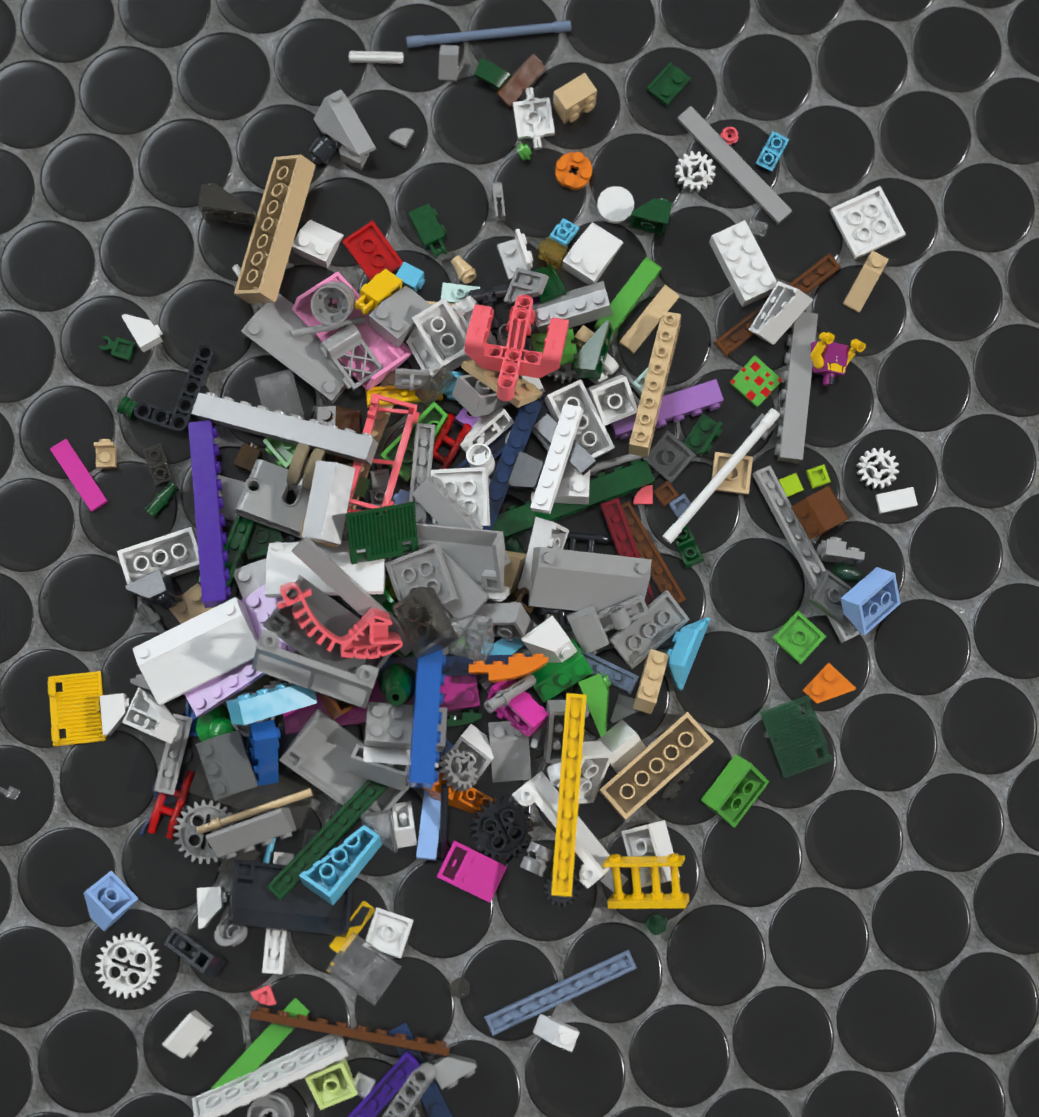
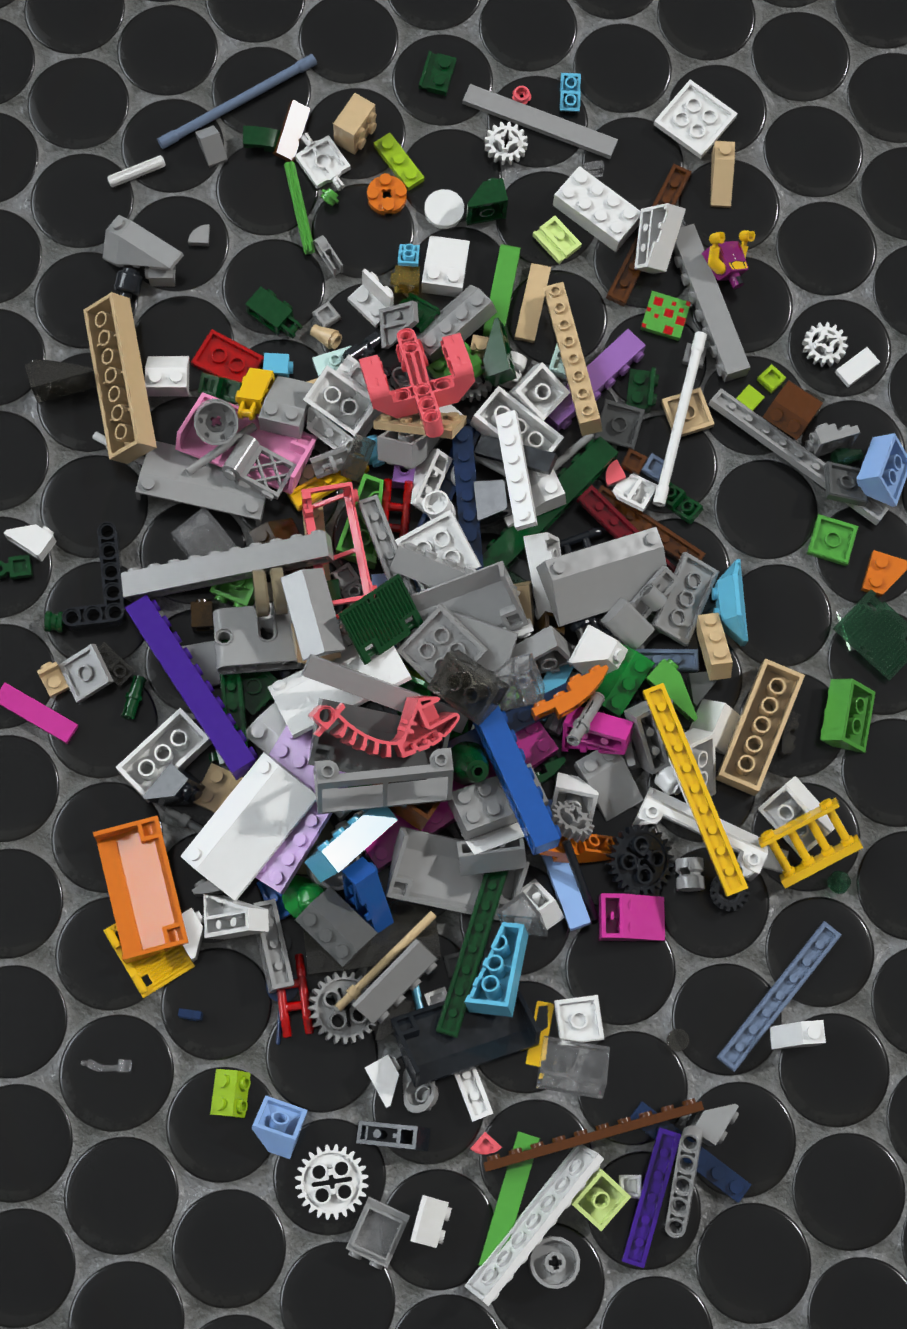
camera: 25 degrees left, 5 degrees down
(82, 778) = (190, 1015): none -> dark blue tile
(84, 856) = (230, 1093): none -> lime bracket
(91, 659) = (141, 889): none -> orange slope
(132, 462) = (85, 673): none -> light grey plate
(143, 1023) = (377, 1233): none -> window
(354, 272) = (219, 386): none -> dark green slope
(472, 251) = (326, 315): none -> light grey tile
(495, 149) = (299, 208): none -> bright green axle
(598, 146) = (399, 161): none -> lime plate
(653, 520) = (635, 491): none -> white slope
(696, 274) = (557, 239): none -> yellowish green plate

